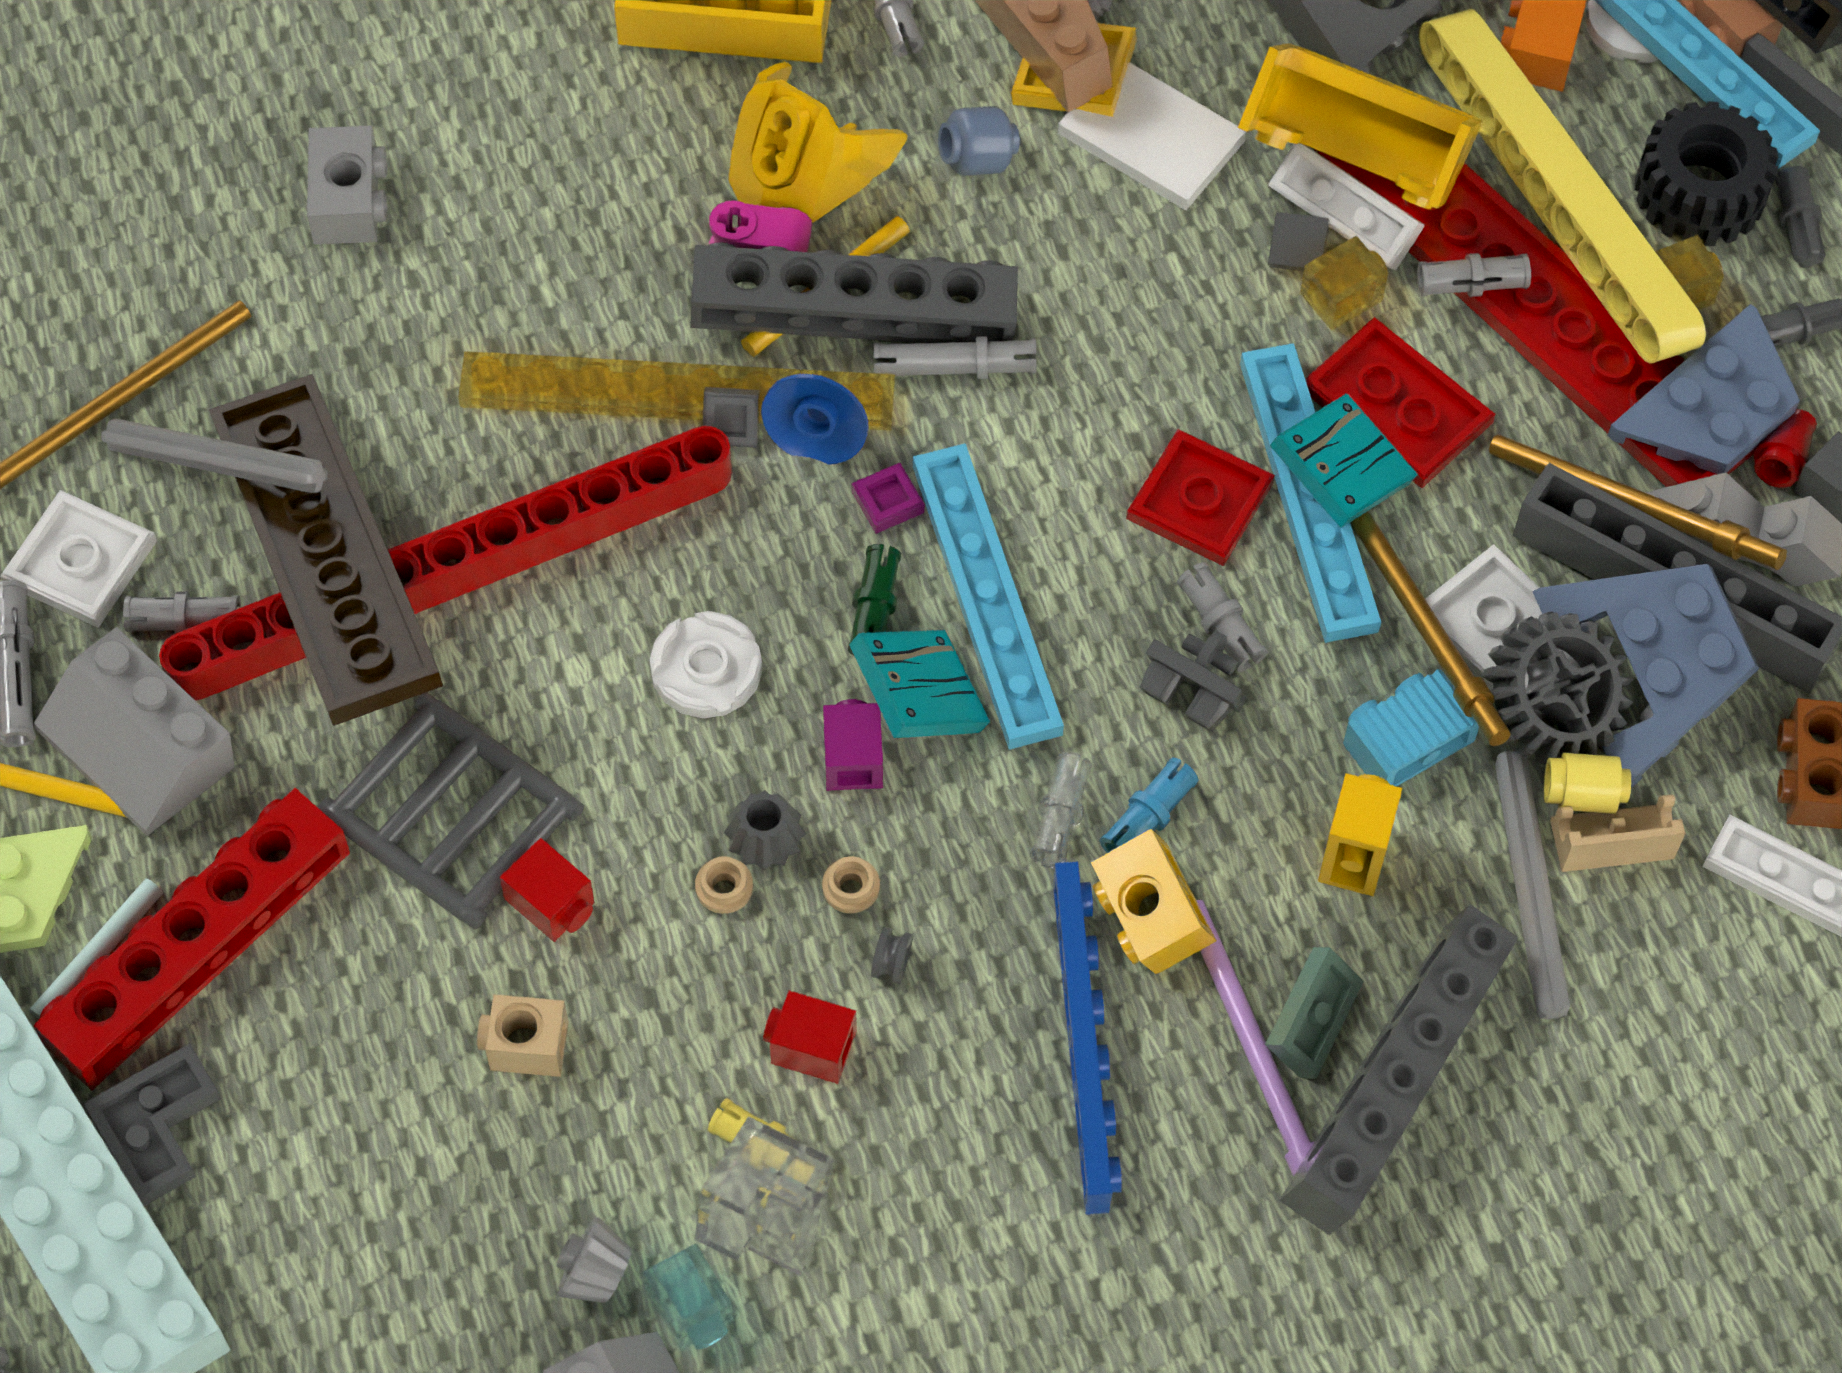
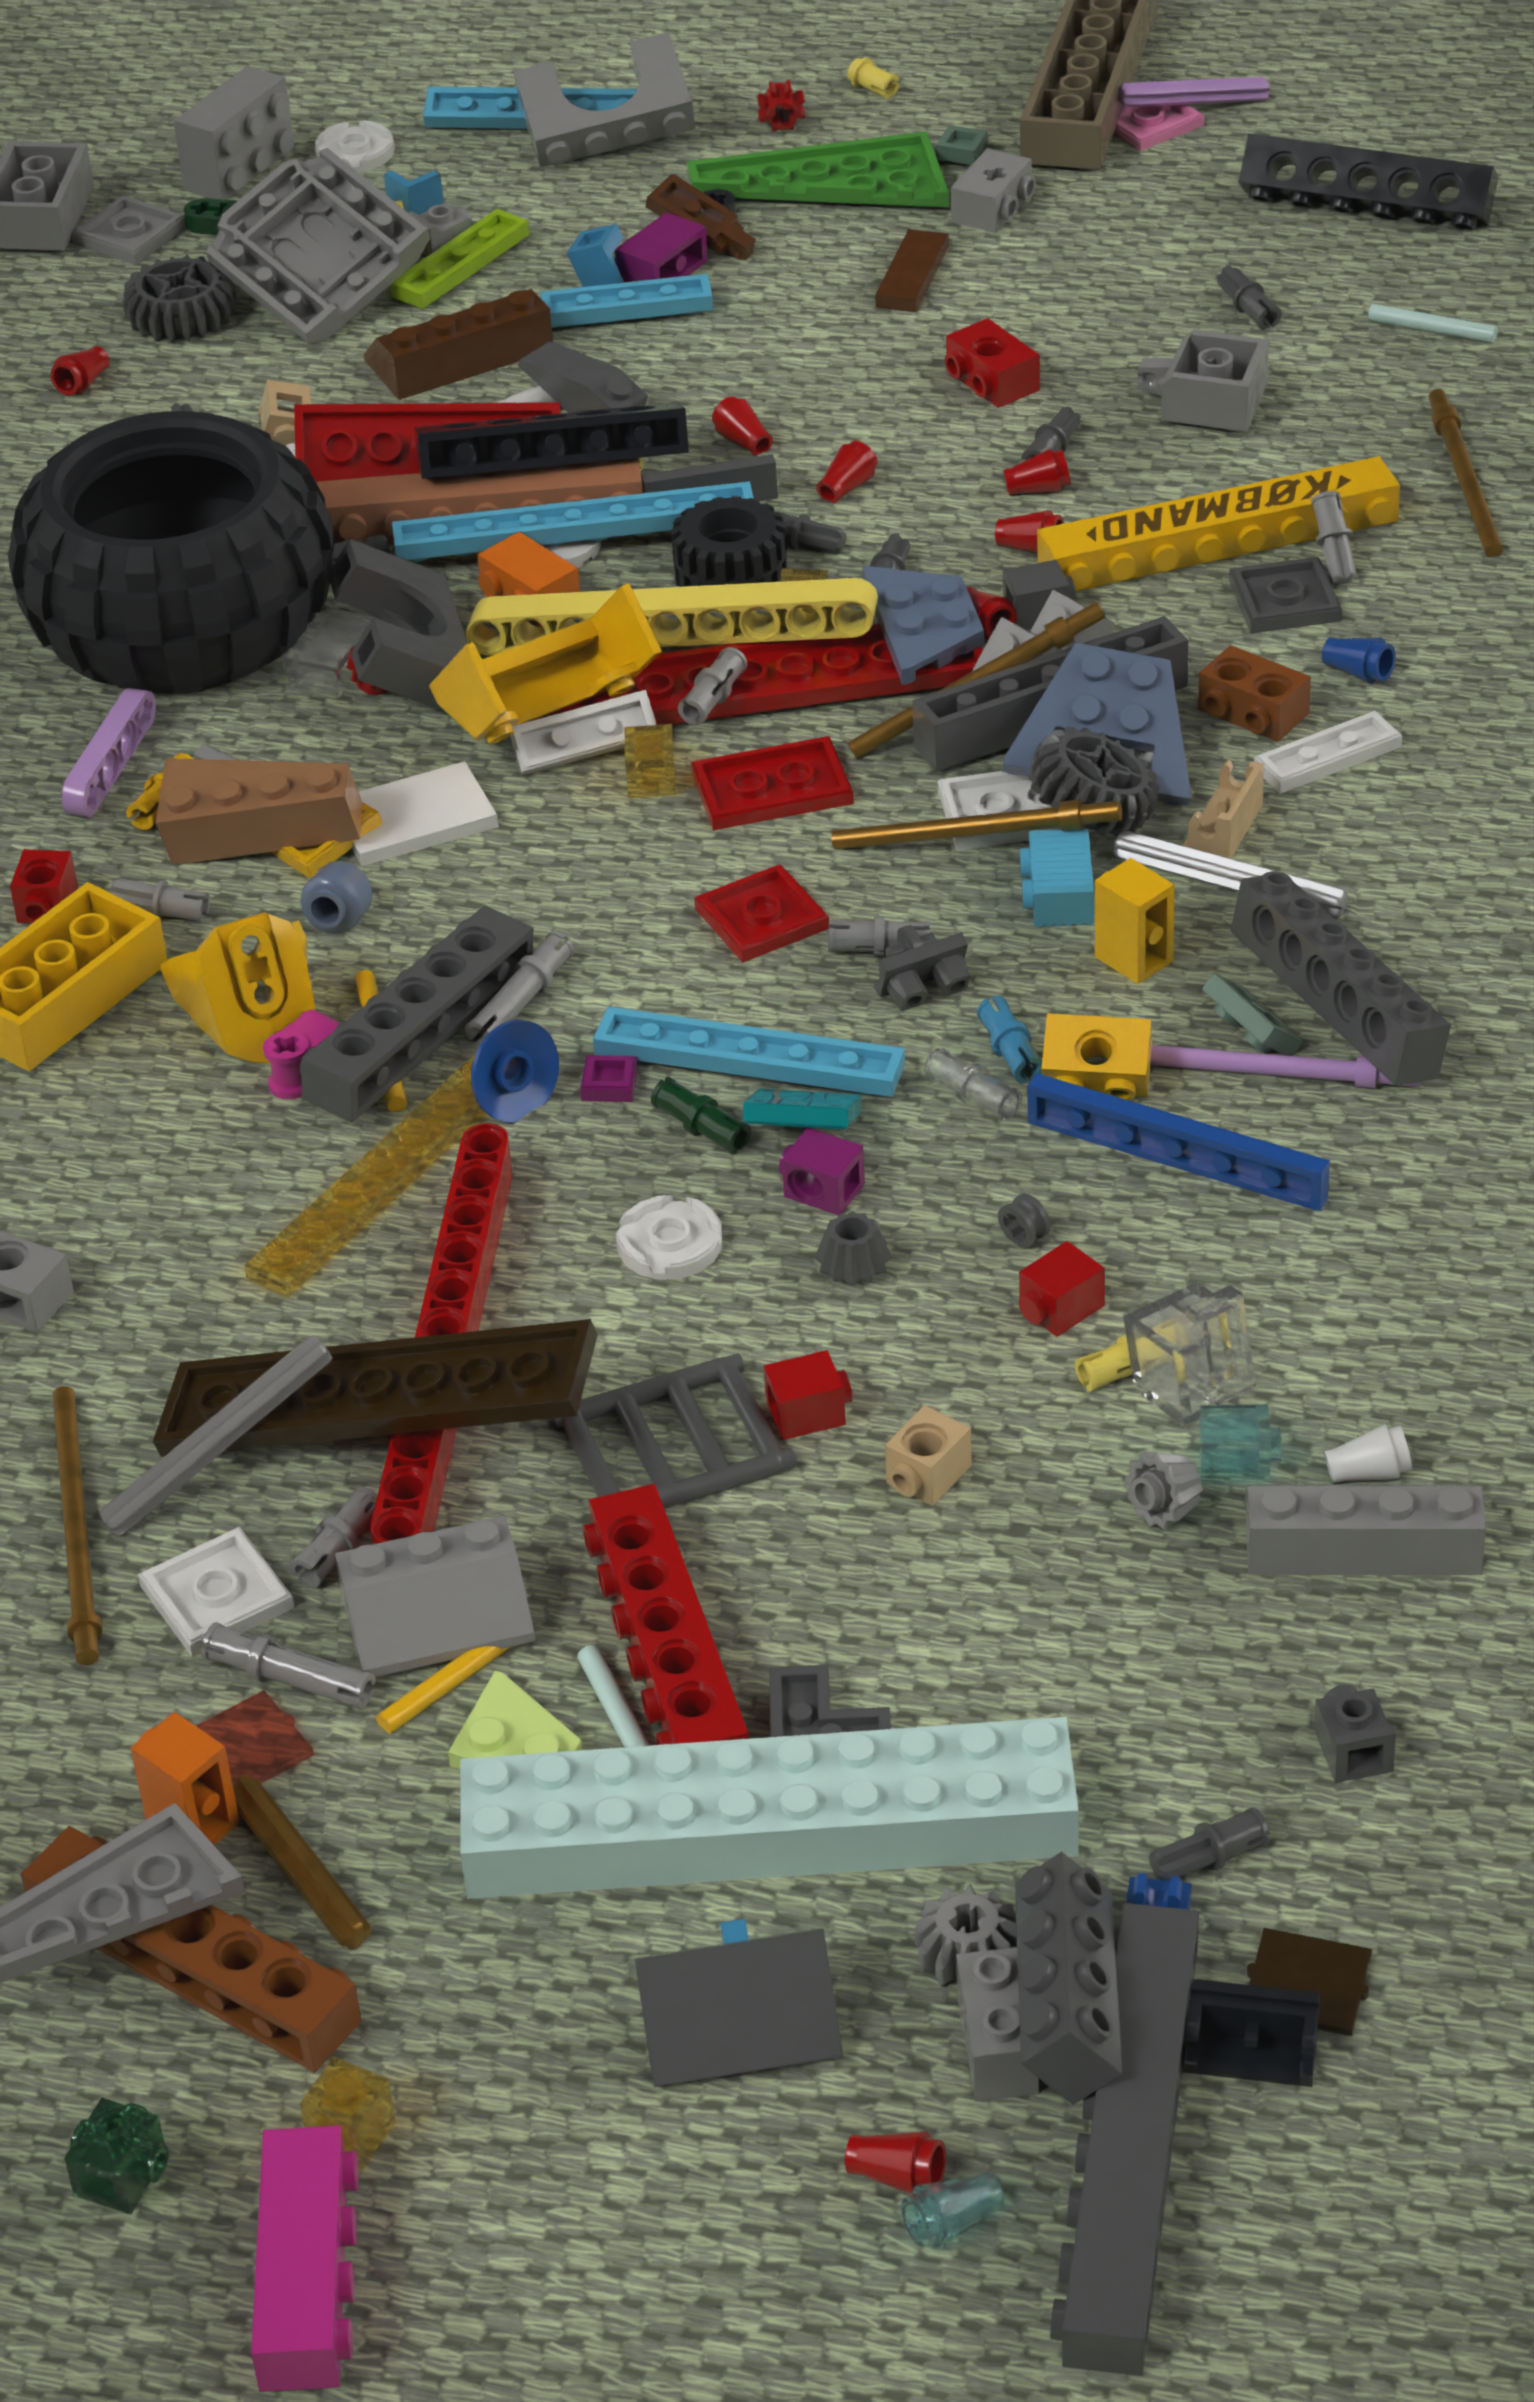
camera: 55 degrees left, 20 degrees down
(724, 869) = (880, 1295): tan plate -> none
(733, 413) = (450, 1124): dark grey tile -> none
(851, 869) = (940, 1223): tan plate -> none
(1297, 240) = (591, 771): dark grey tile -> none
(1324, 549) = (811, 850): medium azure plate -> none
(1343, 460) = (808, 814): teal tile -> none
(1587, 782) = (1178, 800): light yellow brick -> none

